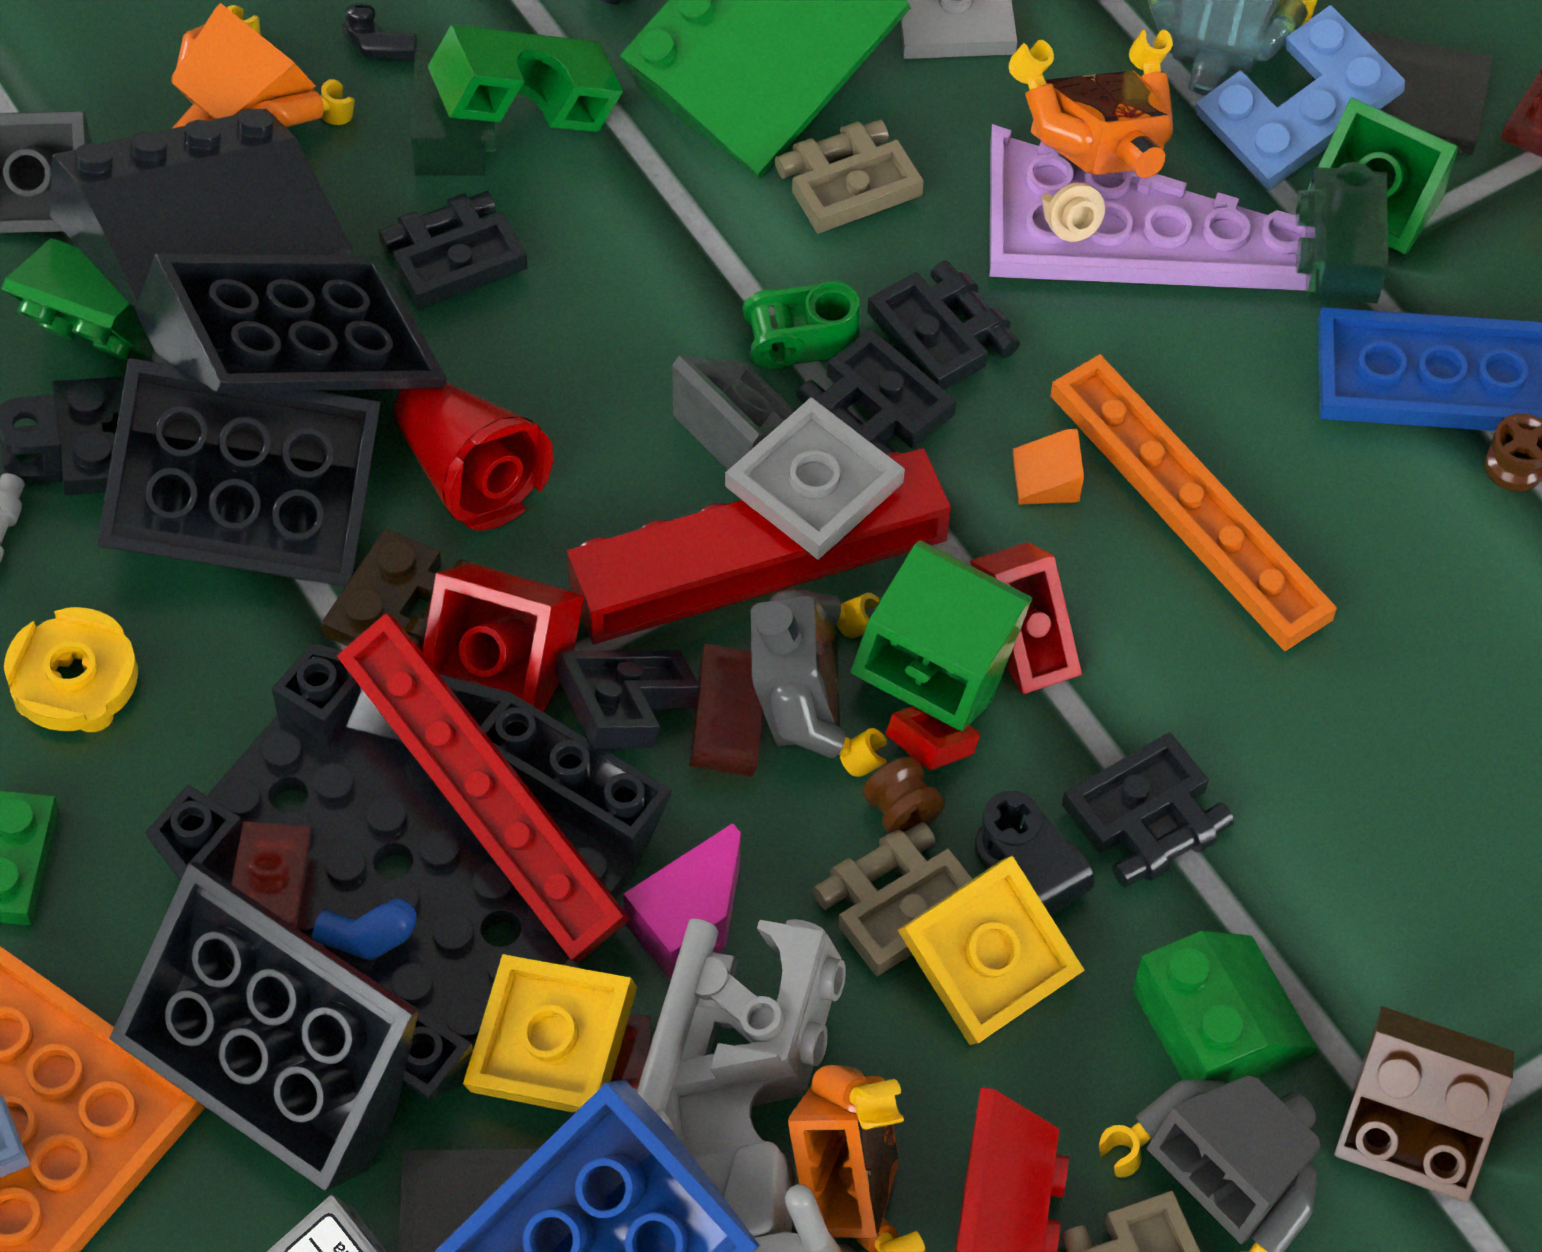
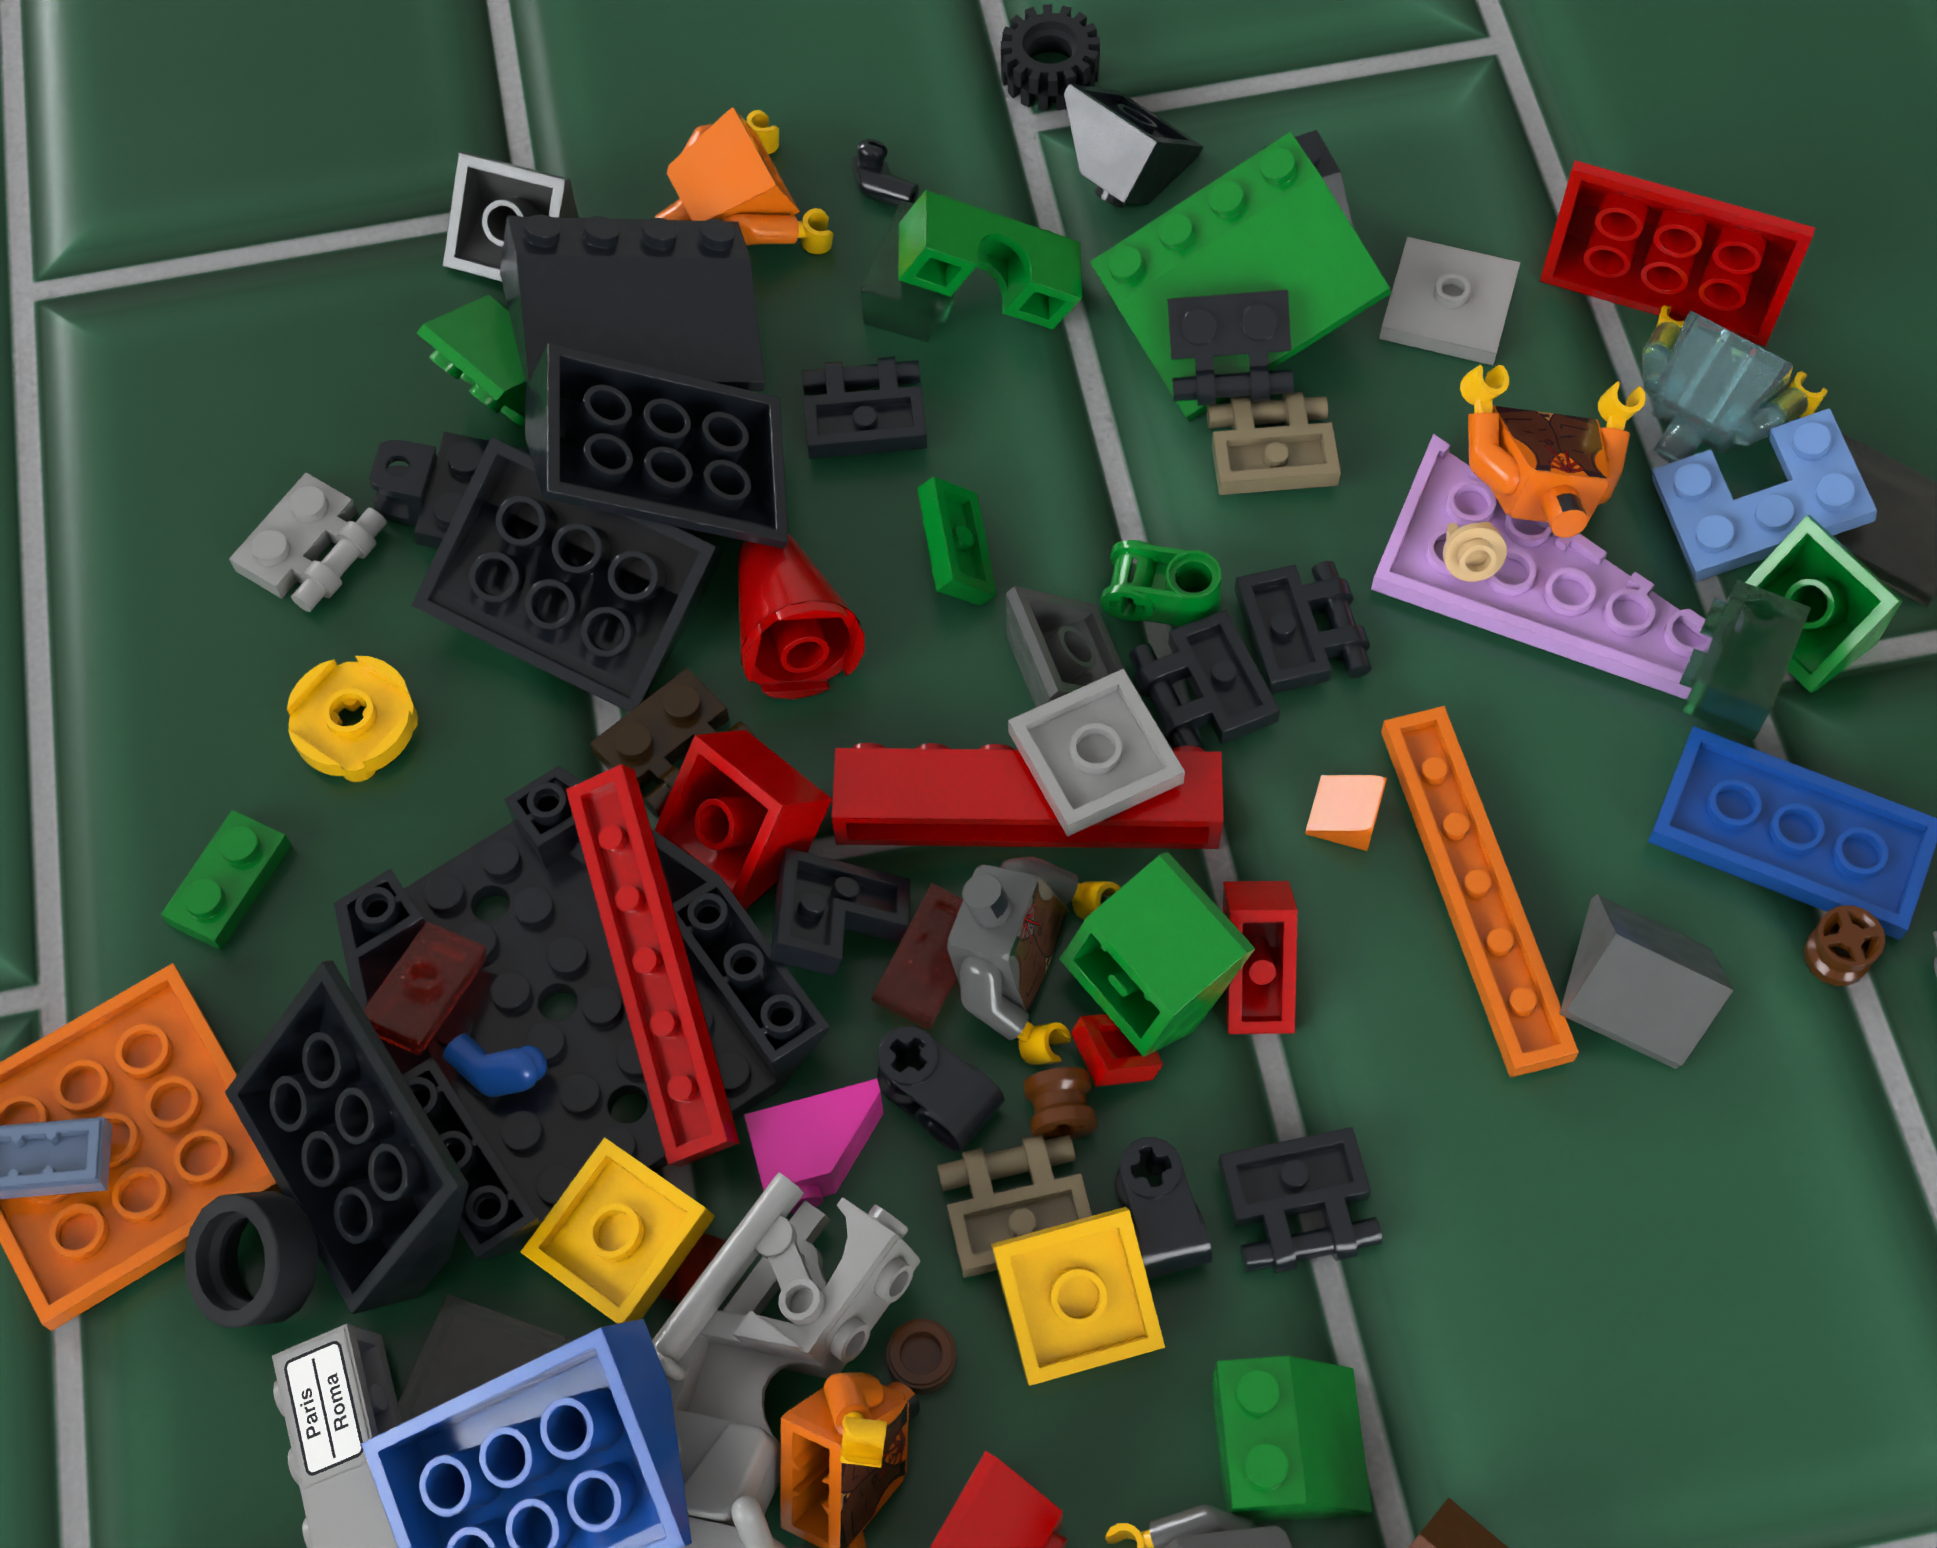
camera: 25 degrees right, 5 degrees up
(157, 1186) = (213, 1259): none -> black tyre
(595, 341) = (956, 541): none -> green plate
(775, 77) = (1227, 327): none -> black plate
(788, 819) = (946, 1093): none -> black piece
(869, 1048) = (921, 1355): none -> reddish brown tile
(1368, 535) = (1643, 983): none -> dark grey slope

